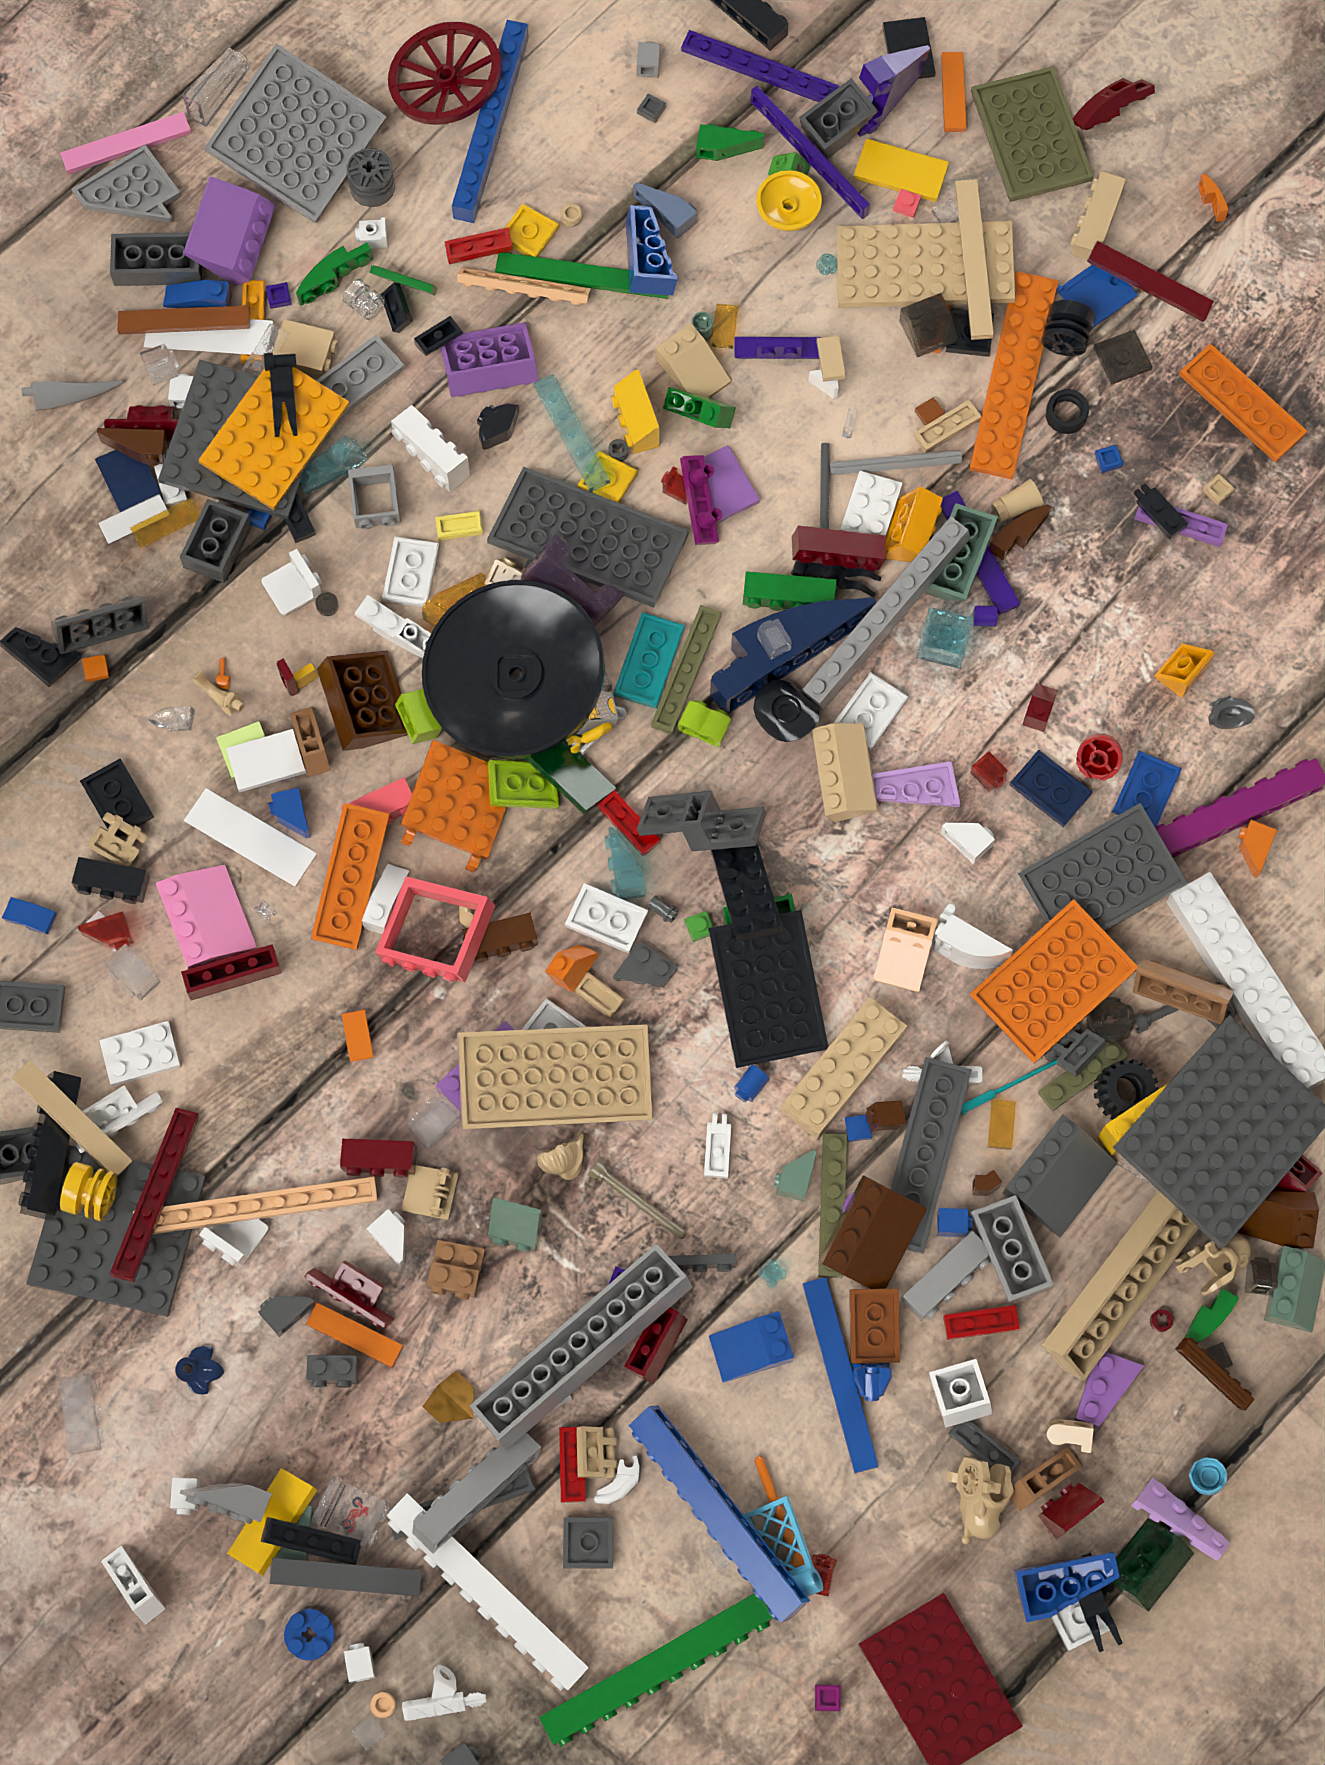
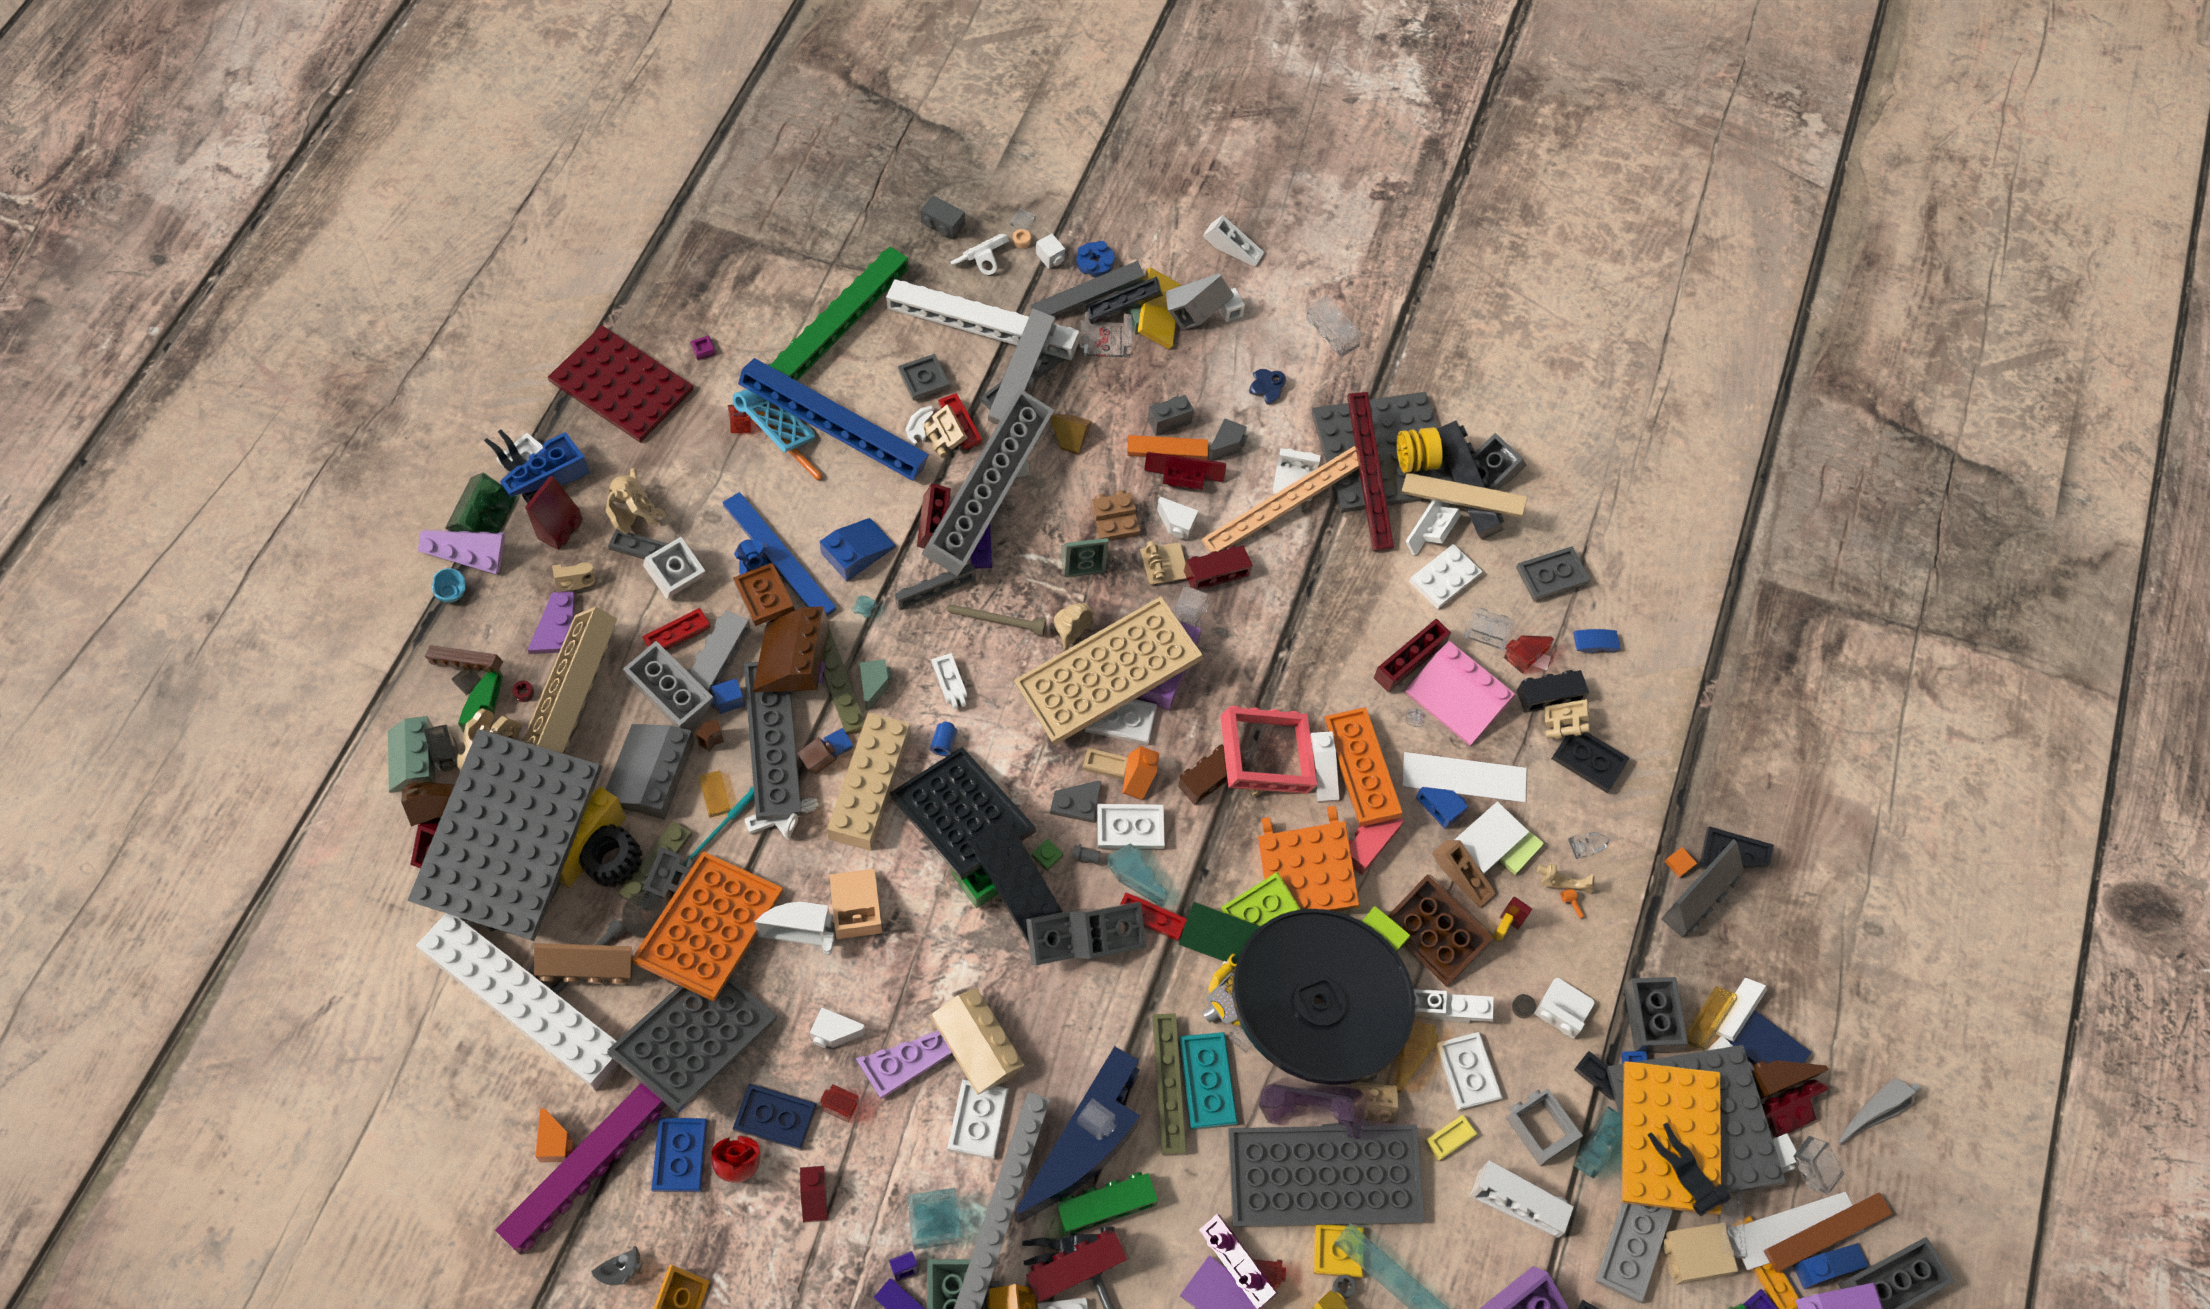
camera: 150 degrees right, 10 degrees down
(357, 1035) = (1286, 653): orange slope -> none
(497, 424) = (1474, 1258): black piece -> none
(704, 723) = (1128, 1035): lime brick -> none
(785, 711) = (1056, 1076): black hat -> none
(1044, 1478) = (586, 537): medium nougat slope -> none

